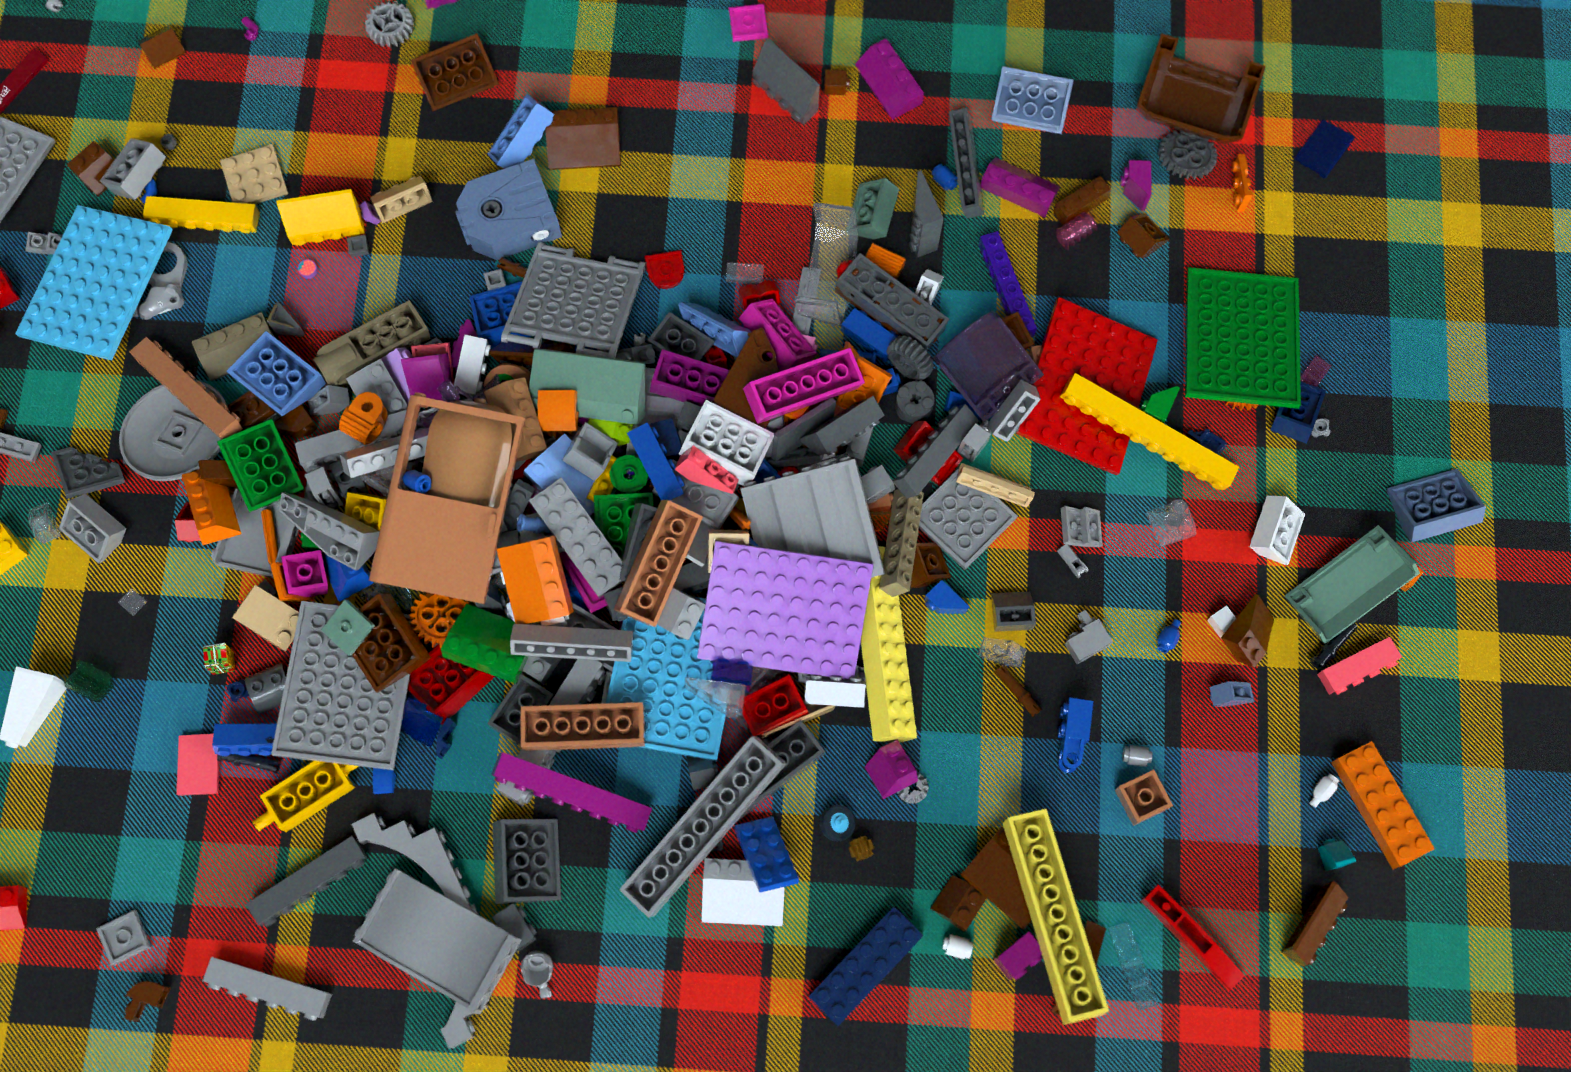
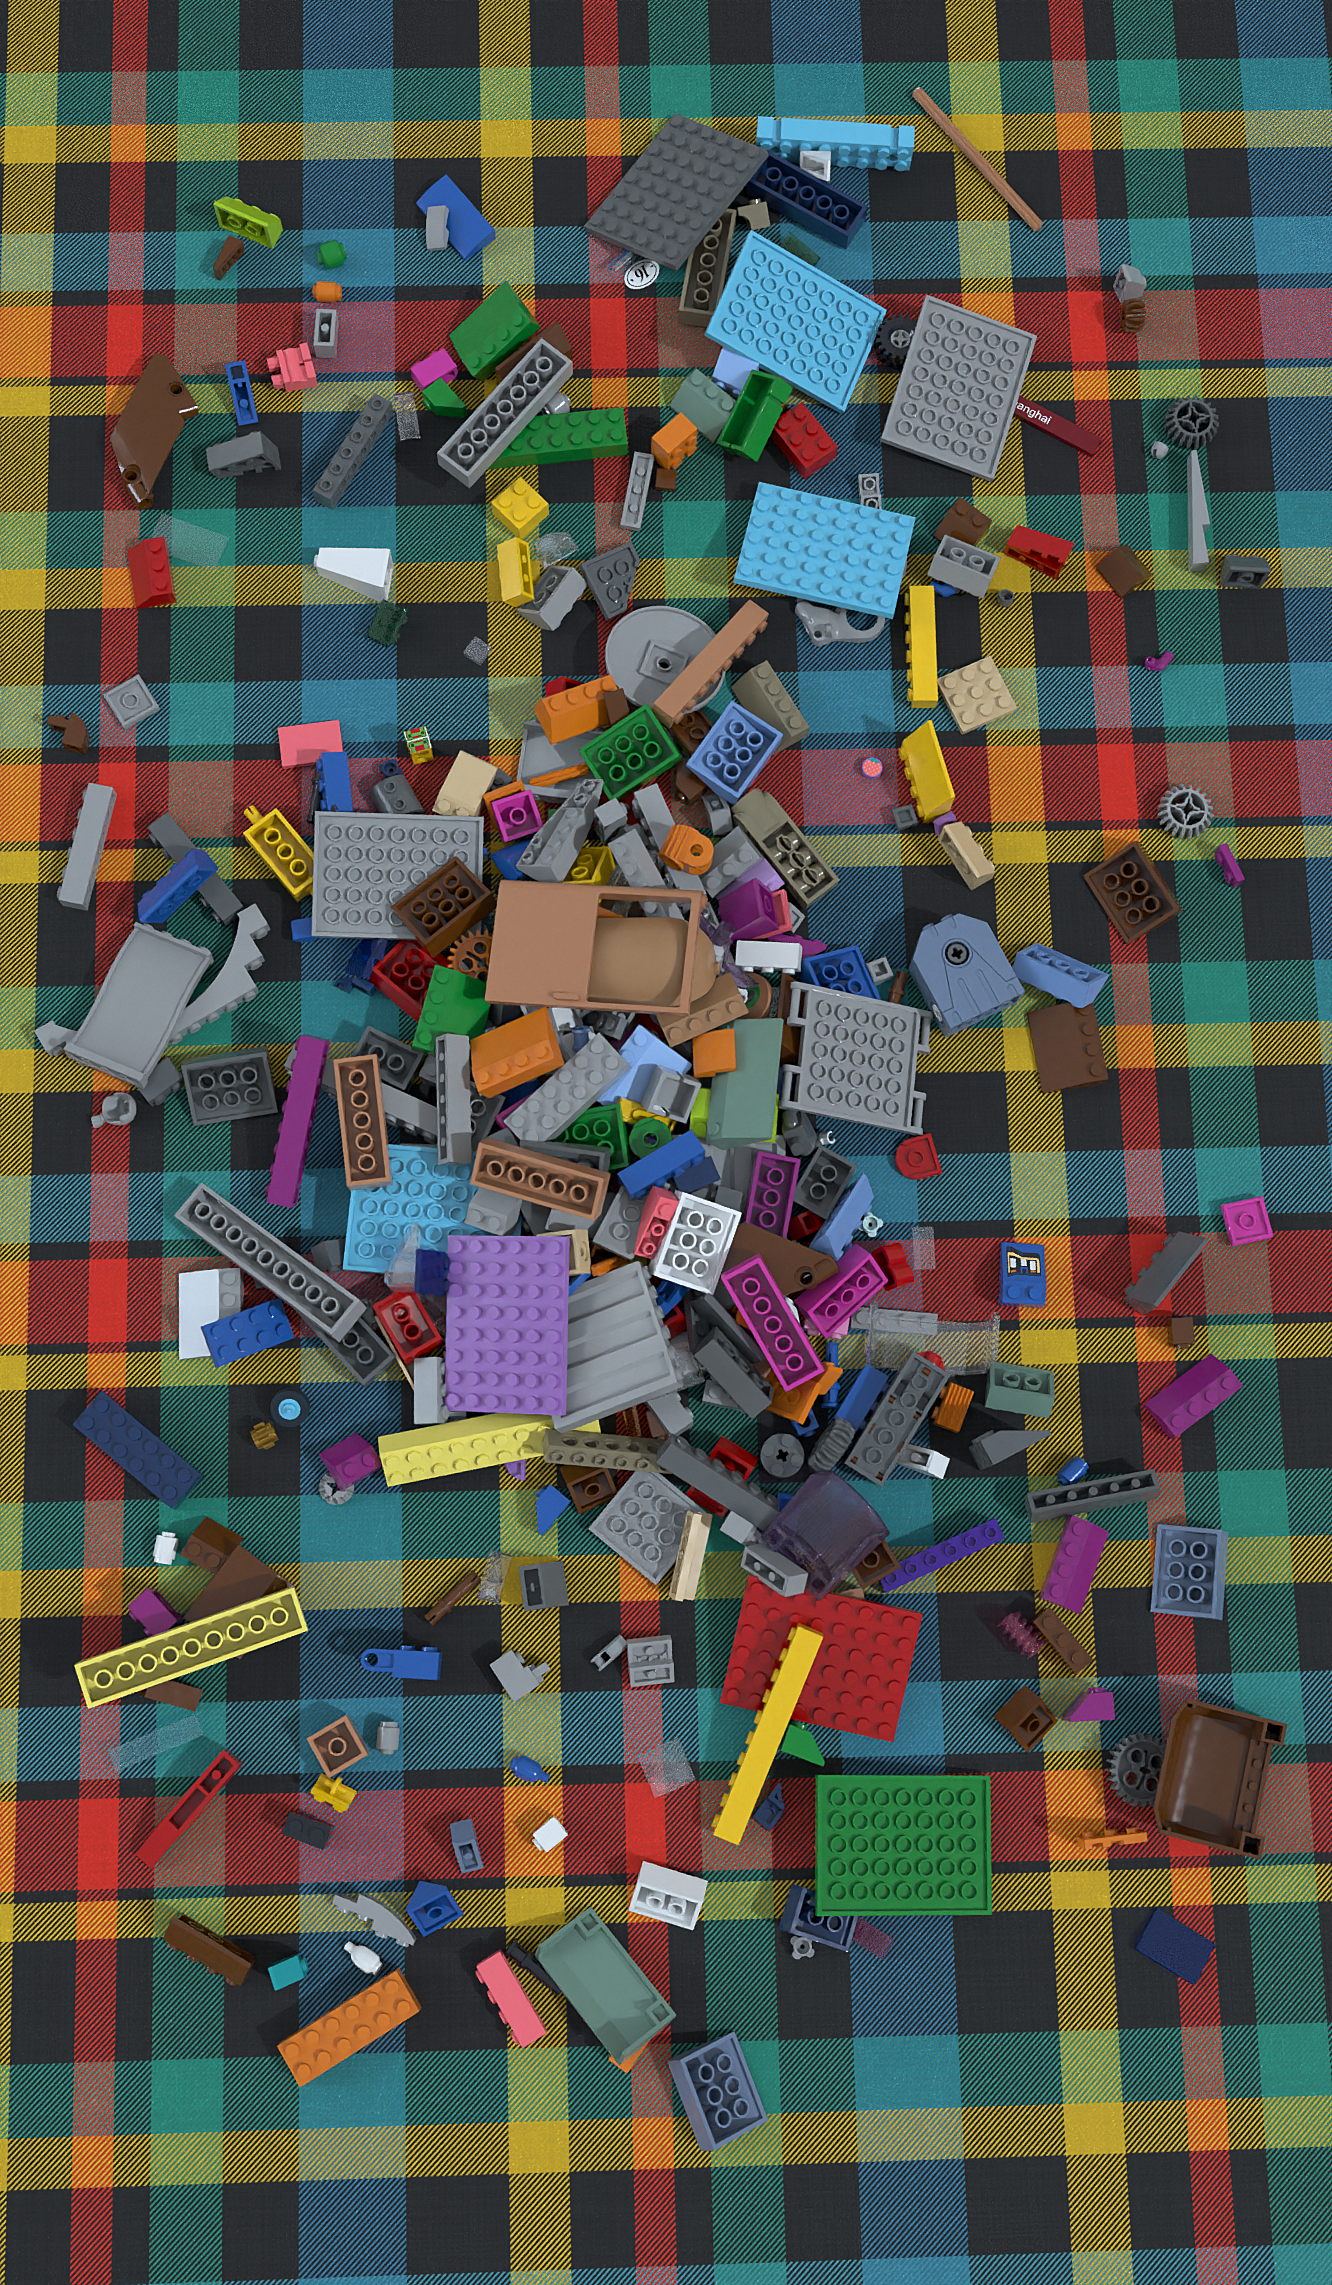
camera: 80 degrees right, 5 degrees up
(60, 558) = (515, 572): none -> yellow brick
(130, 107) = (1039, 550): none -> red wedge
(283, 323) = (804, 751): dark grey slope -> none
(324, 897) = (176, 886): none -> blue slope
(348, 627) = (455, 867): sand green plate -> none
(417, 481) = (611, 913): blue brick -> none
(719, 307) = (876, 1223): none -> light aqua plate
(776, 197) = (1022, 1275): none -> slope
(909, 626) = (517, 1469): none -> medium lavender tile
(1183, 805) = (333, 1792): none -> yellow hips
(1214, 830) = (307, 1830): none -> black brick
(1250, 633) = (538, 1865): reddish brown slope -> none
(1282, 726) = (432, 1907): none -> blue slope
(1292, 770) = (385, 1922): none -> light grey slope

